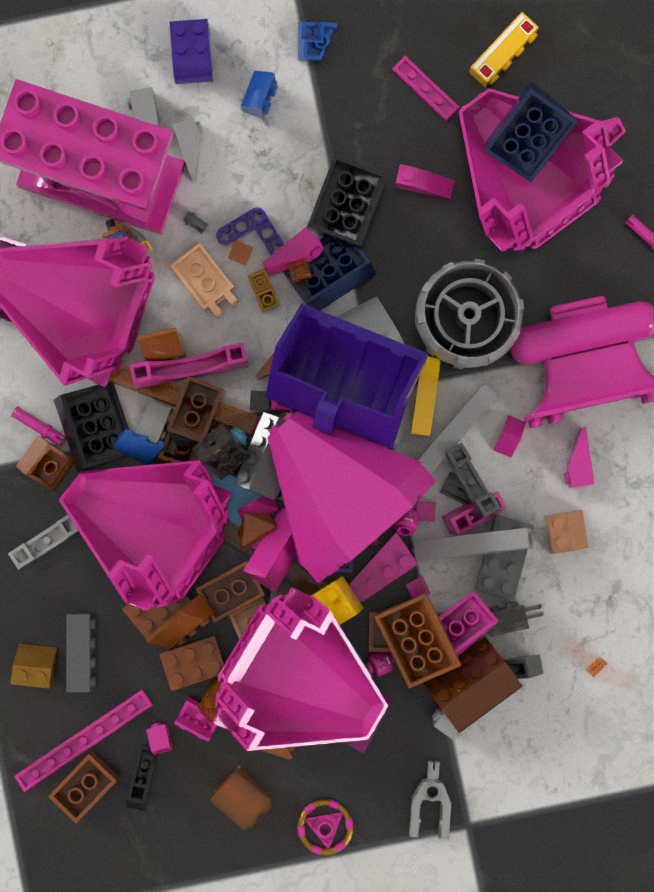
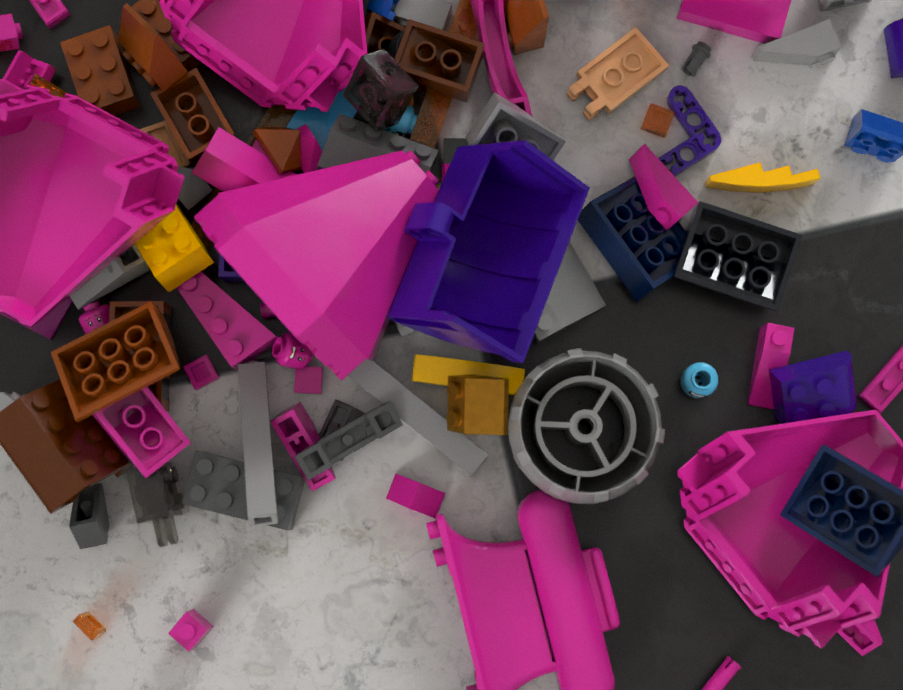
camera: 90 degrees right, 5 degrees down
(254, 357) = (507, 122): none -> light grey slope
(263, 290) = (607, 152): pearl gold slope -> none
(288, 185) = (754, 180): none -> yellow slope
(299, 270) = (637, 194): clear orange plate -> none
(434, 226) = (707, 376): none -> medium azure head
(443, 152) = (814, 388): none -> dark purple brick
(451, 388) = (477, 404): none -> pearl gold slope
(566, 532) = (280, 579): nougat slope -> none
(579, 466) = (373, 595): dark pink slope -> none
(600, 594) = (190, 630): none -> dark pink brick

